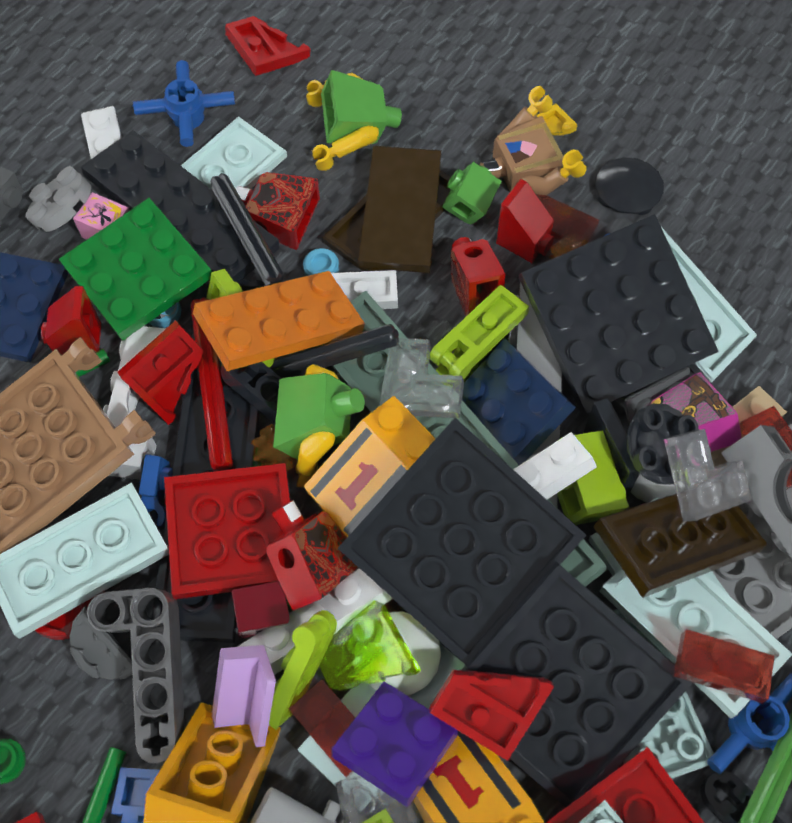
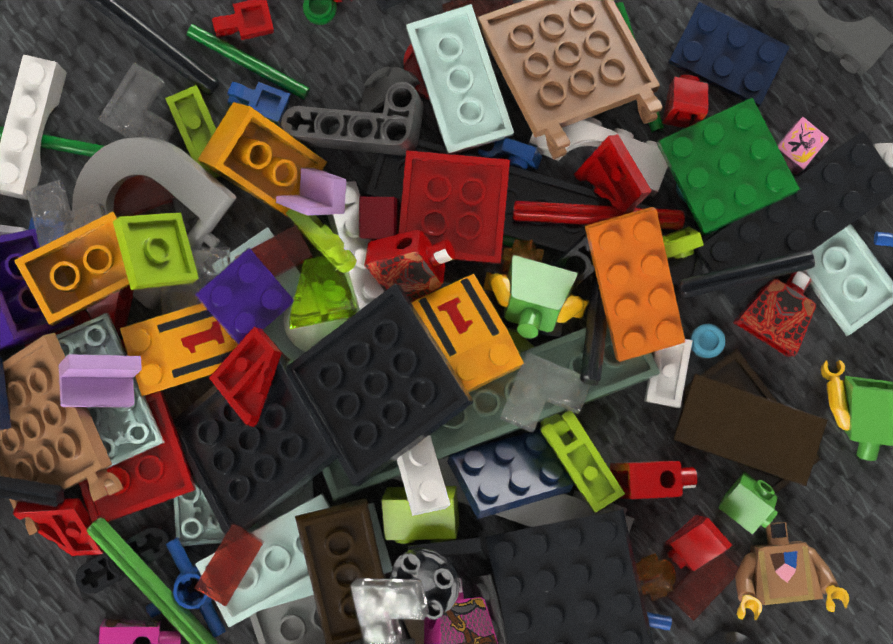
camera: 100 degrees right, 20 degrees up
(54, 202) = (832, 105): light grey plate -> none
(558, 121) = (824, 620): yellow tile -> none

